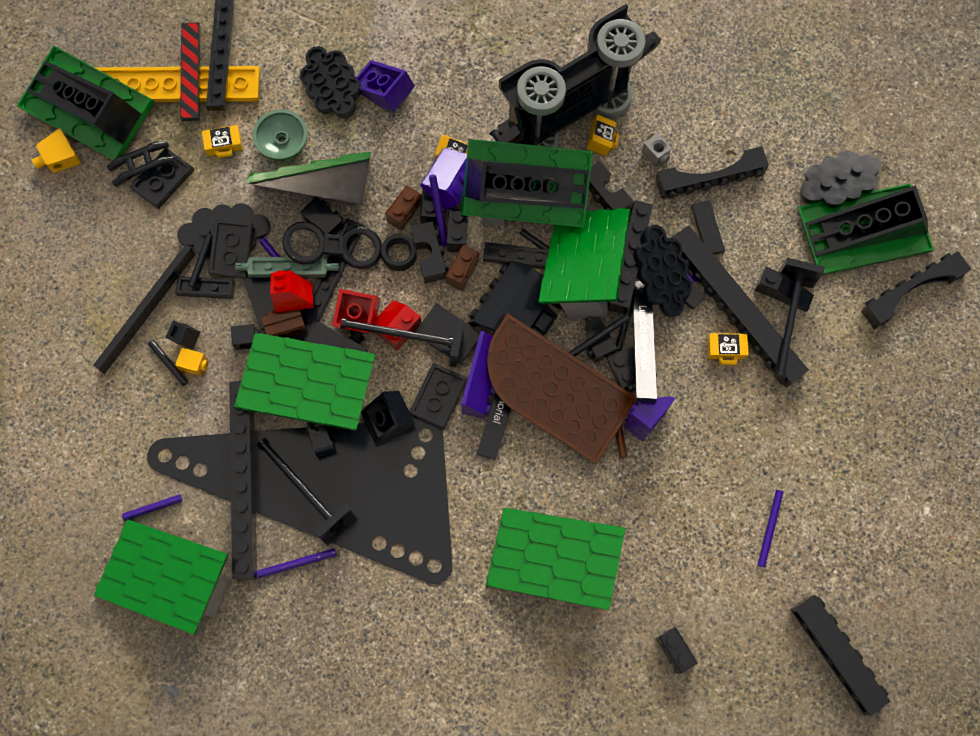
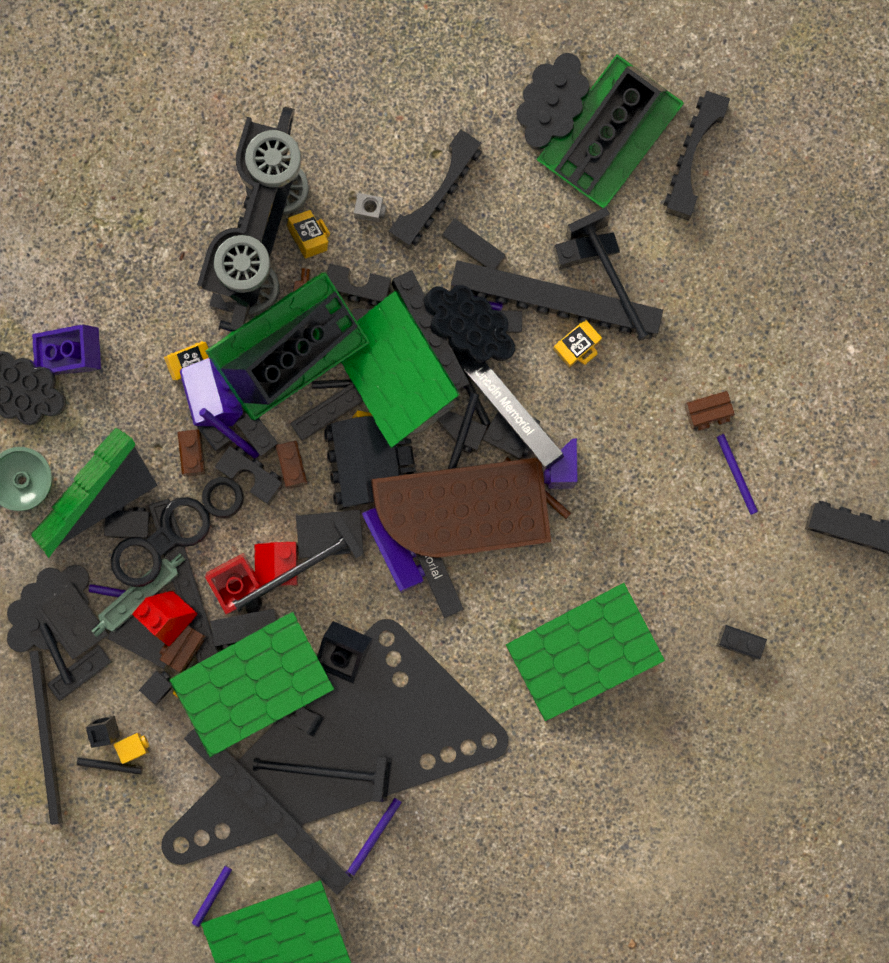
camera: 40 degrees left, 10 degrees up
(438, 396) = (368, 596): black tile -> none
(786, 466) = (709, 410): none -> reddish brown brick

